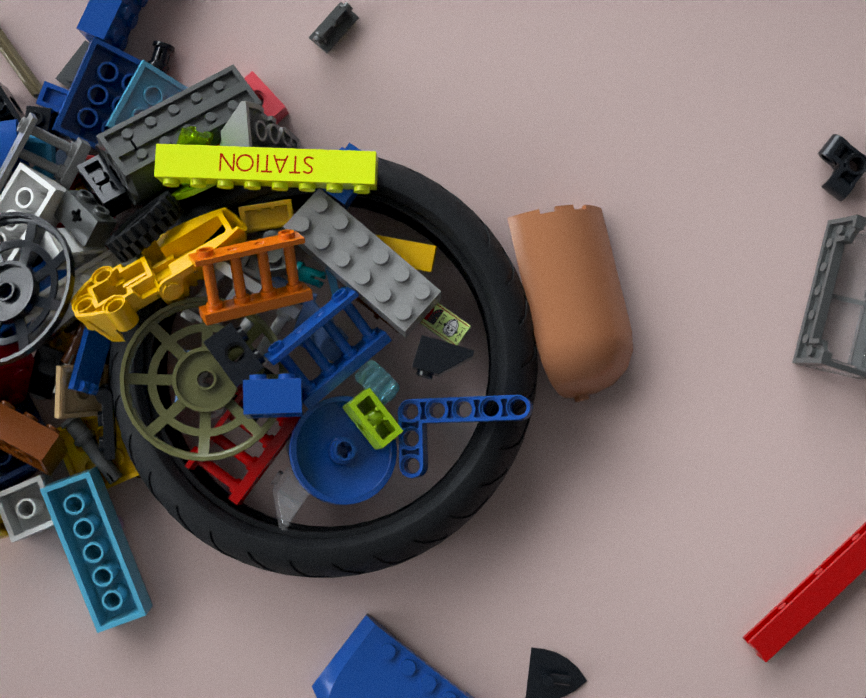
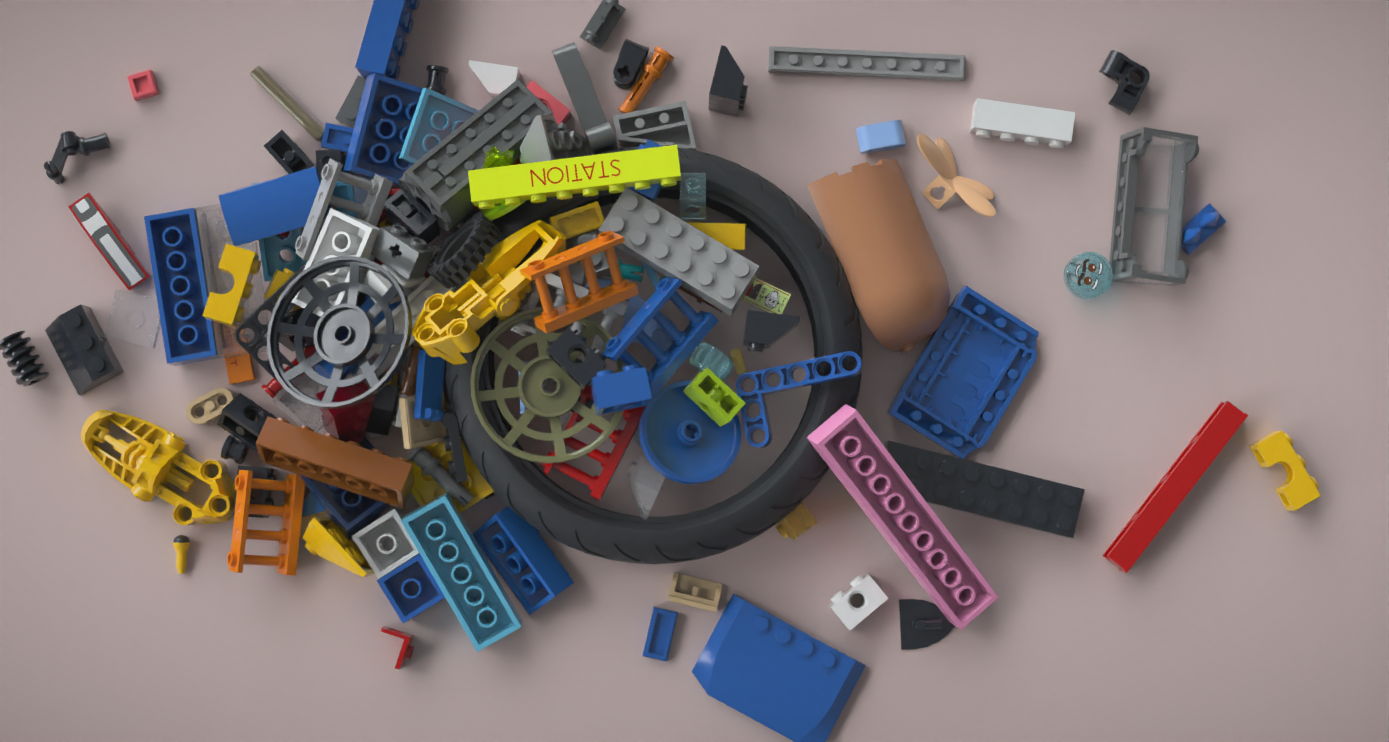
camera: 15 degrees left, 0 degrees up
(31, 615) = (406, 649): none -> red bracket
(41, 558) = (411, 588): none -> blue brick
(162, 546) = (522, 559): none -> blue slope
(216, 59) = (494, 77): none -> white slope
(287, 642) = (660, 634): none -> blue tile
(307, 128) = (584, 99): none -> dark grey beam
(327, 607) = (695, 592): none -> tan hinge
(353, 68) = (631, 61): none -> black piece
(368, 134) = (660, 124): none -> light grey wedge
(373, 83) = (652, 72): none -> orange pin
(387, 207) = (693, 195): none -> clear light blue bracket
(405, 385) = (739, 365): none -> clear yellow tile
(440, 556) = (796, 522): none -> clear yellow brick
(443, 106) = (727, 87): none -> black slope
(484, 657) = (872, 599): none -> white brick
(547, 569) = (902, 516): none -> bright pink brick
(587, 109) = (866, 63): none -> light grey tile
(589, 183) = (880, 137): none -> light blue beam
(631, 552) = (990, 490): none -> black brick
(636, 433) = (966, 374): none -> blue slope
(646, 215) = (942, 160): none -> light nougat piece
(732, 191) = (1022, 122): none -> white brick
(773, 354) = (1088, 275): none -> clear light blue head

